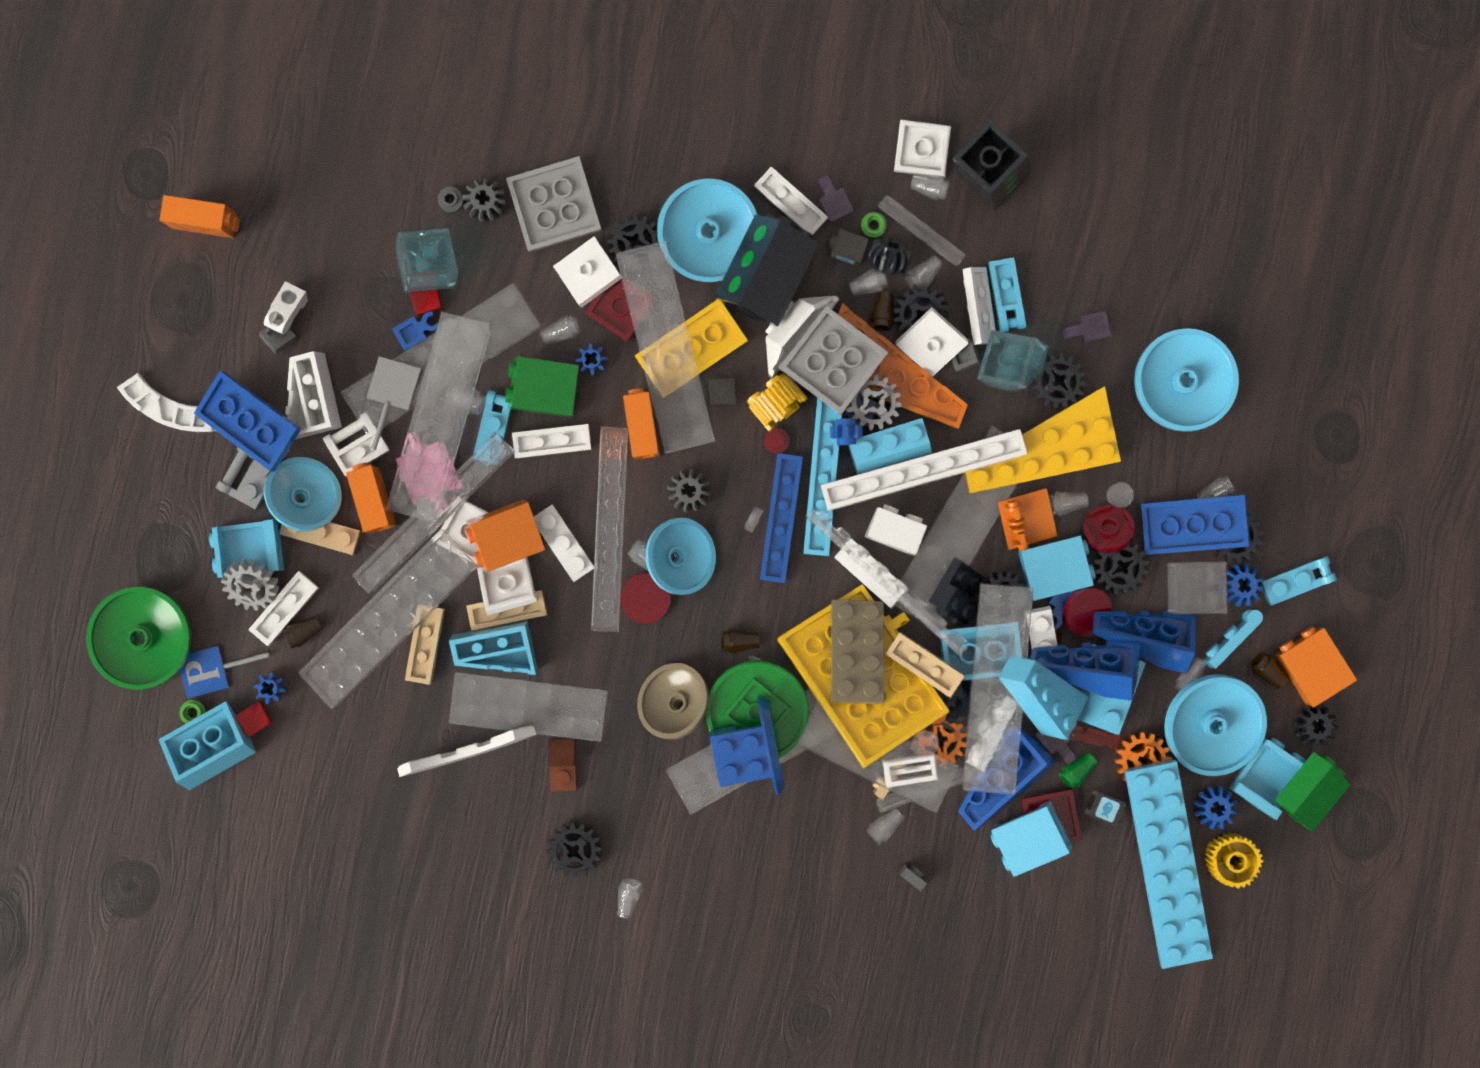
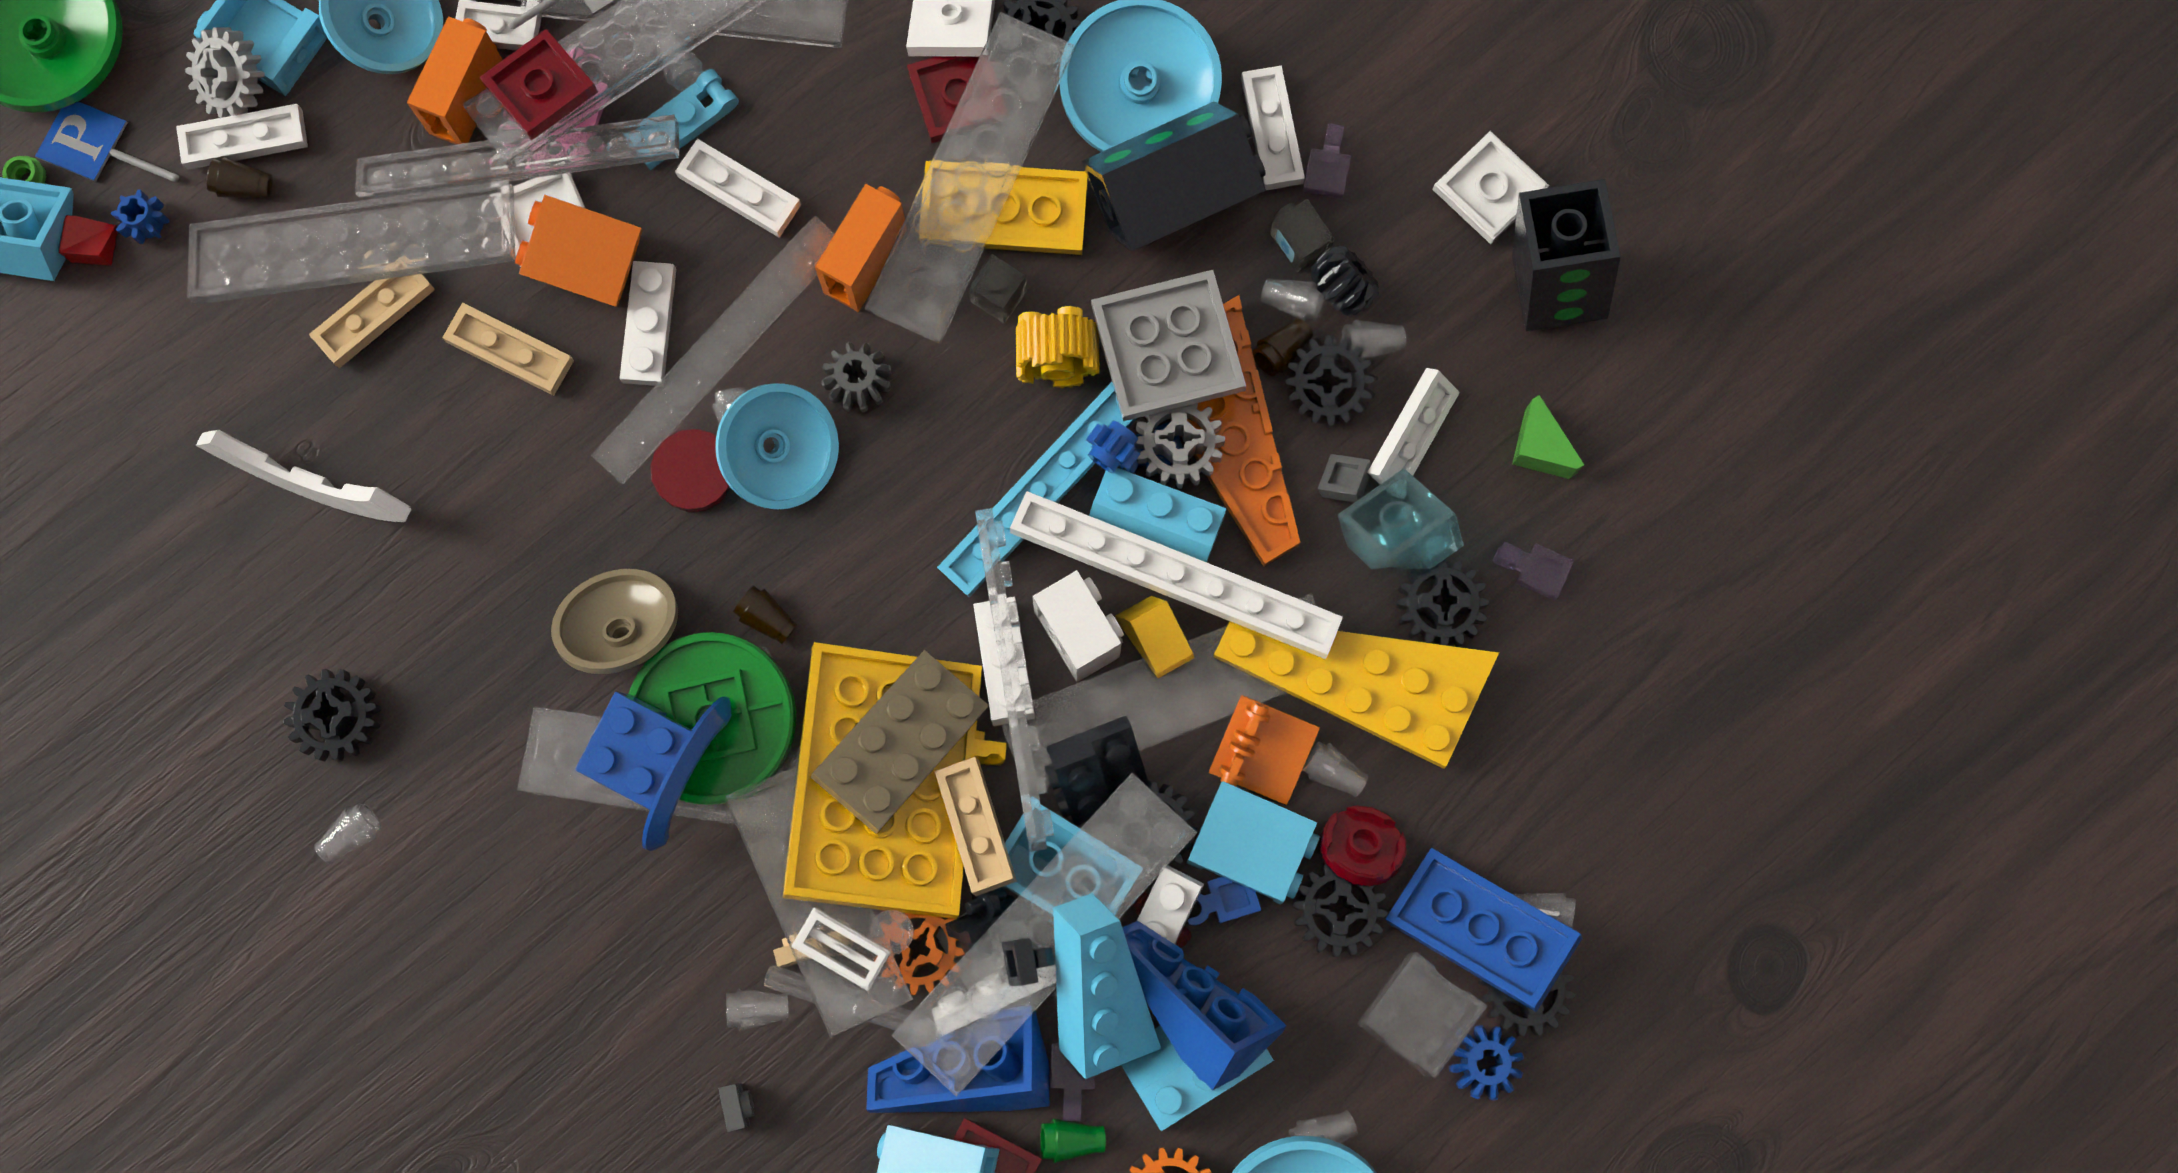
camera: 35 degrees right, 10 degrees down
(330, 536) = (371, 93): tan plate -> none
(420, 471) = (538, 84): none -> dark red plate
(496, 647) = (455, 384): medium azure wedge -> none
(507, 587) = (533, 316): white plate -> none
(521, 703) = (447, 499): clear plate -> none
(542, 386) = (779, 109): green brick -> none
(561, 330) = (863, 66): clear cone -> none
(562, 764) = (413, 596): copper slope -> none
(591, 352) = (869, 116): blue gear -> none
(753, 519) = (909, 476): clear tile -> none
(776, 440) = (1019, 402): dark red plate -> none
(781, 518) = (945, 502): blue plate -> none
(792, 327) = (1166, 262): white wedge -> none
(877, 217) = (1360, 223): bright green plate -> none
(921, 230) = (1411, 286): clear axle -> none
(931, 186) = (1466, 240): clear cone -> none
(932, 342) = (1315, 426): white plate -> none
(933, 504) = (1156, 635): none -> yellow slope
(1000, 710) = (1023, 960): none -> black tile
(1006, 294) = (1461, 443): medium azure plate -> none
(1046, 262) = (1544, 445): none -> bright green slope
(1081, 607) = (1249, 933): dark red tile -> none
(1096, 737) = (1129, 1114): clear red axle -> none
(1120, 495) = (1412, 815): clear tile -> none
(1164, 637) = (1319, 1049): blue wedge -> none
(1186, 380) = (1615, 730): medium azure dish -> none
(1233, 638) = (1422, 1124): medium azure plate -> none
(1297, 581) = (1566, 1118): medium azure plate -> none

